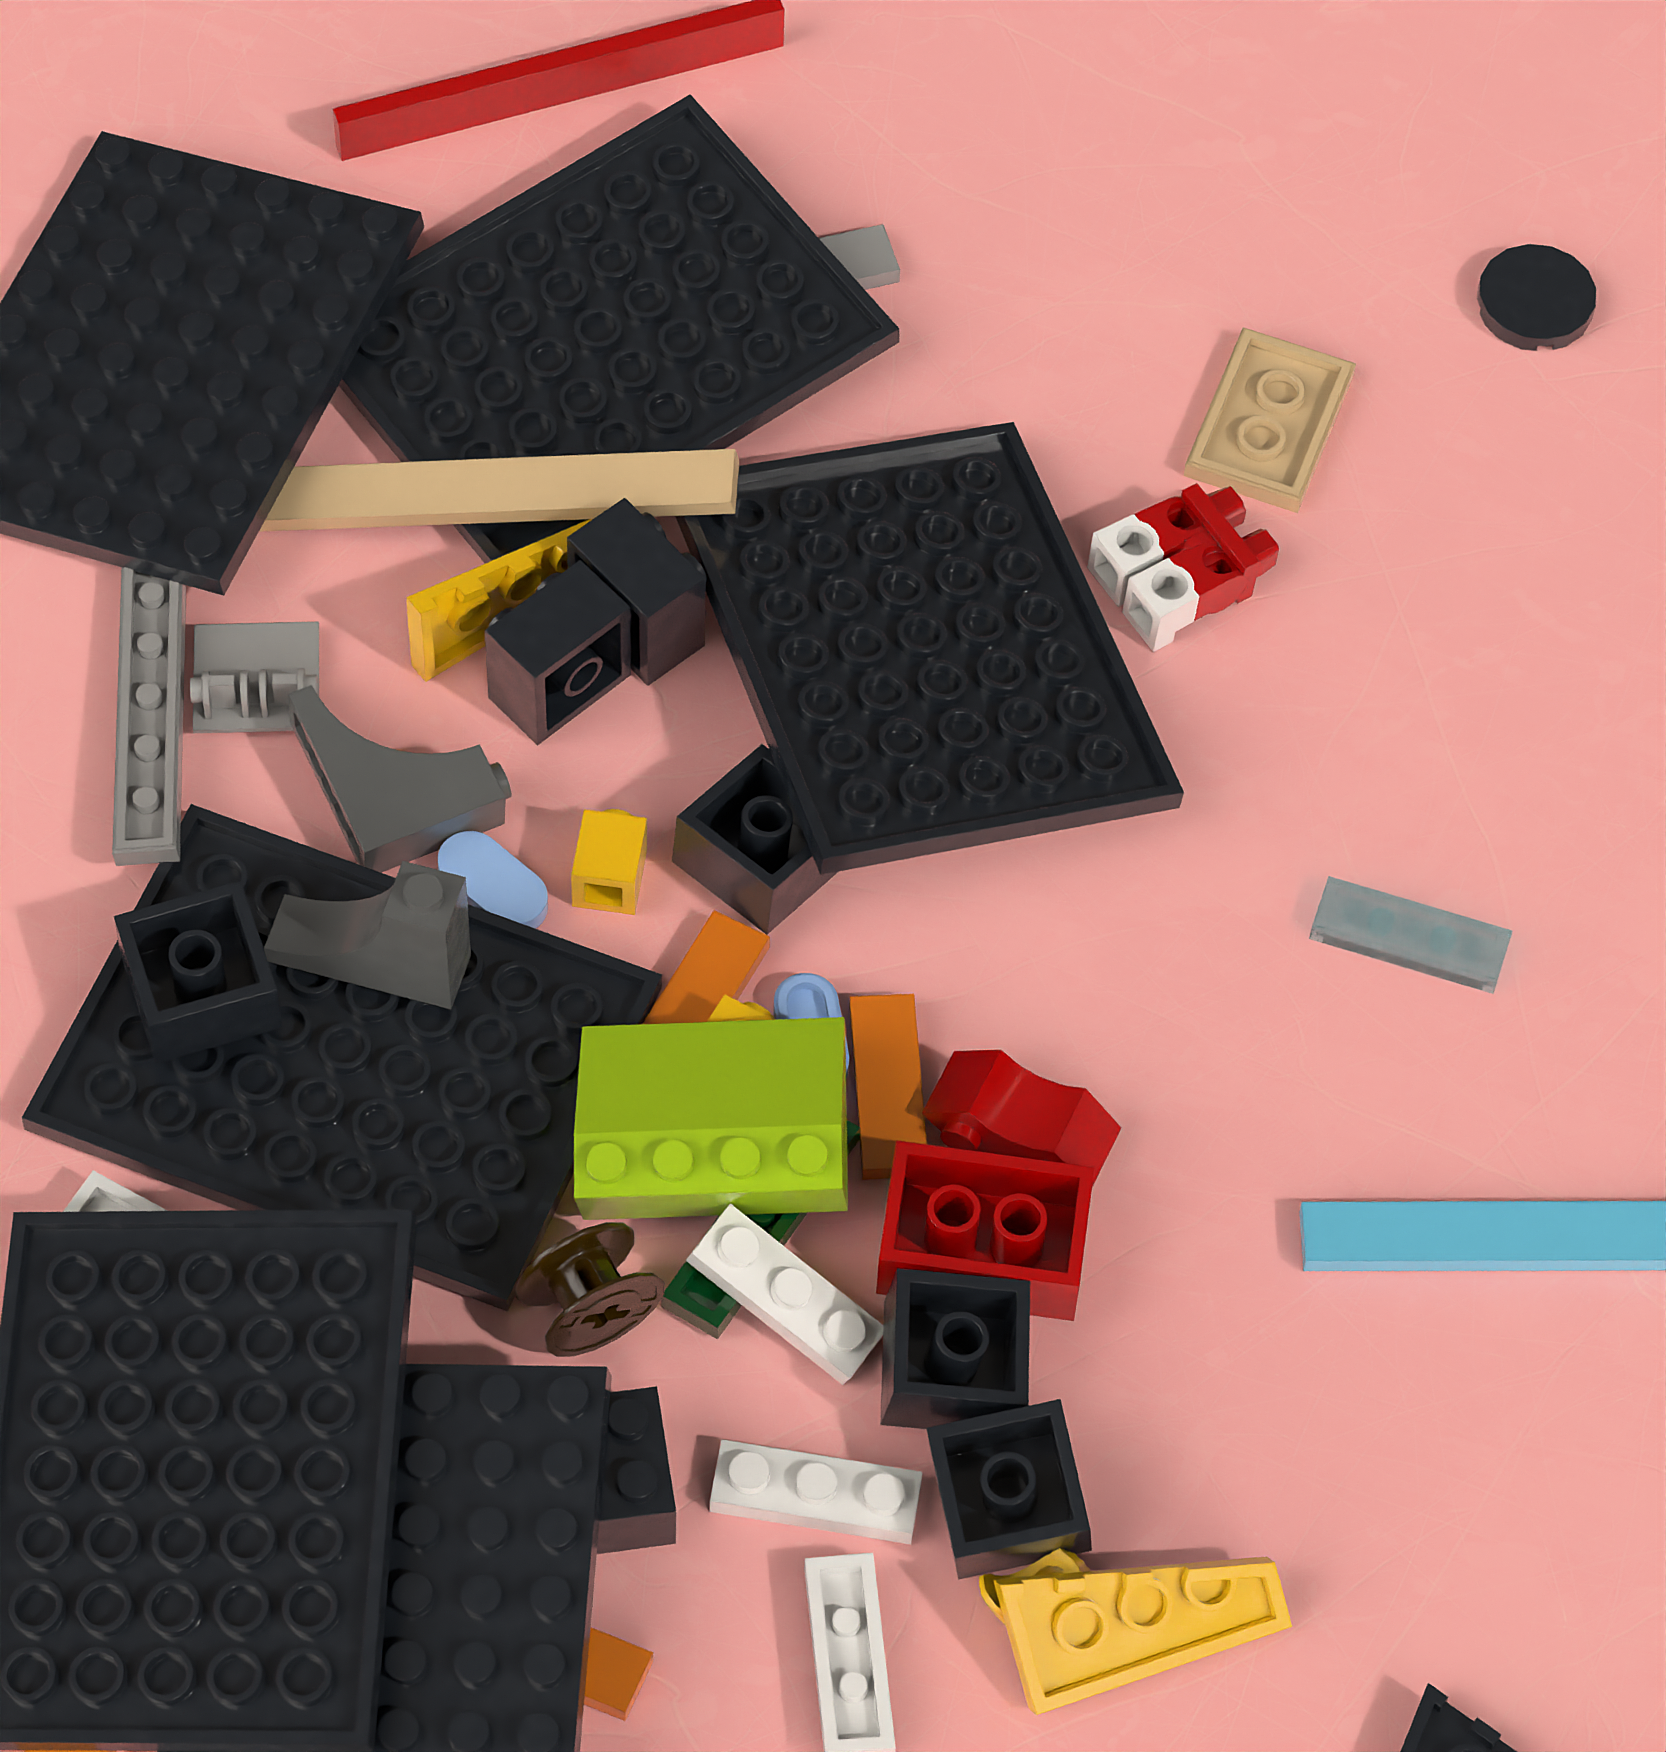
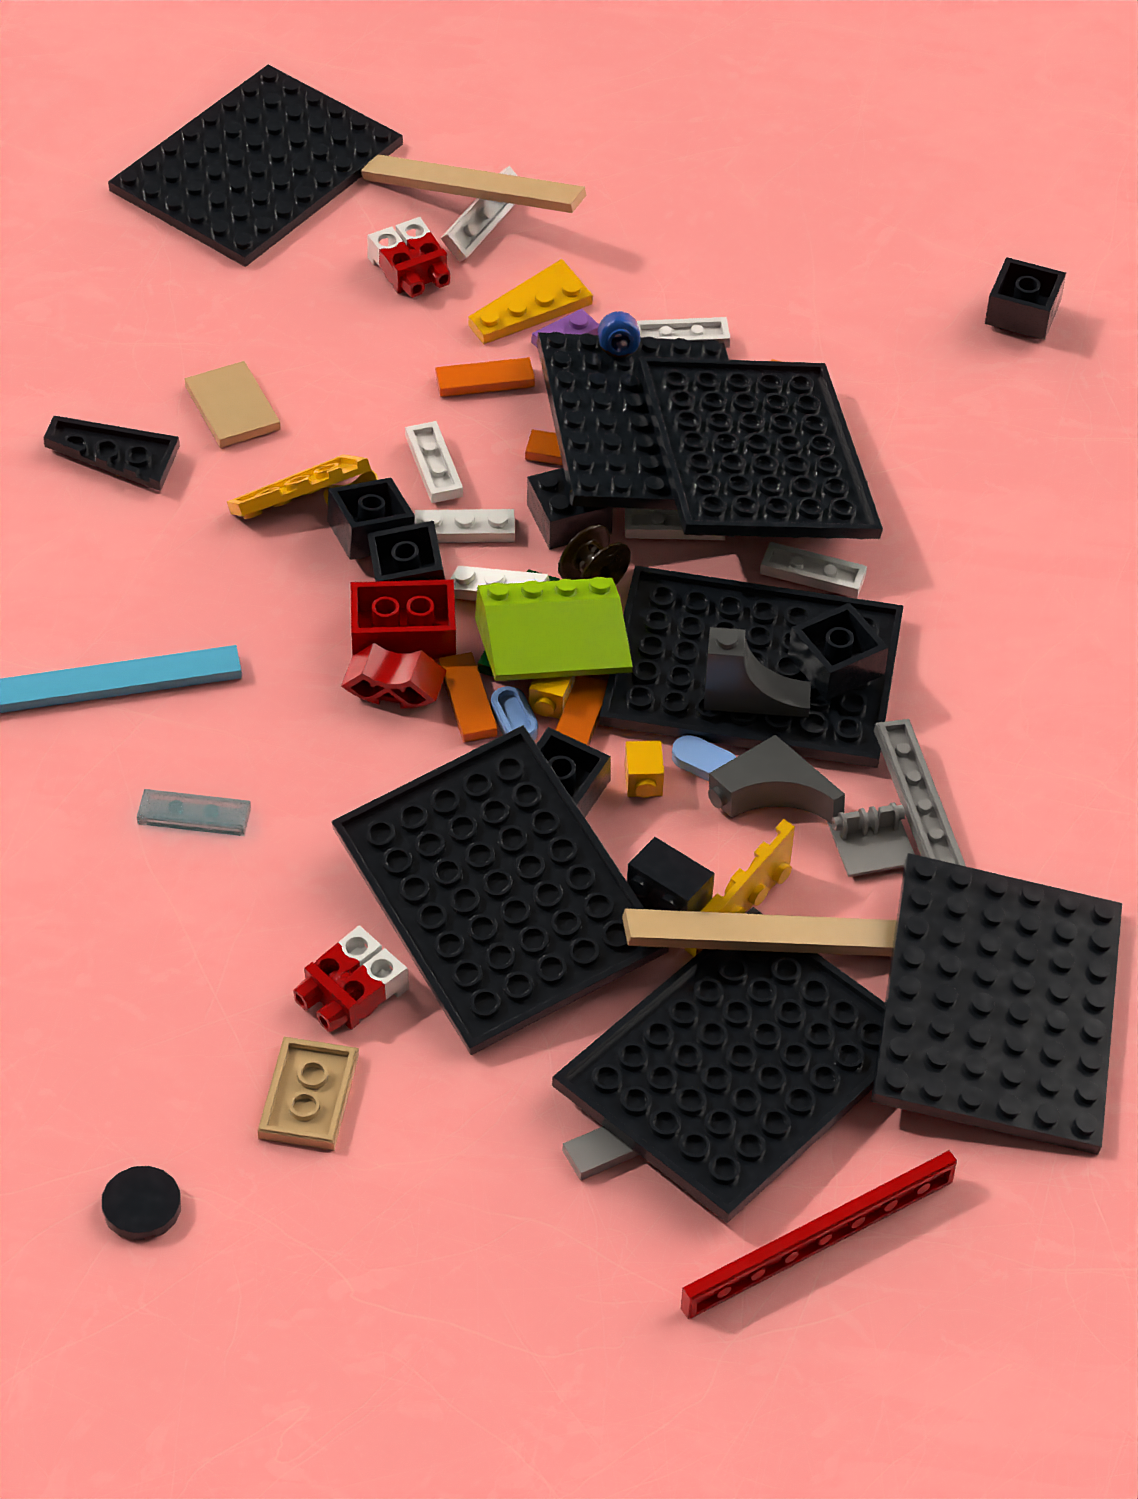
camera: 170 degrees right, 10 degrees down
(558, 651) = (712, 839): black brick -> none

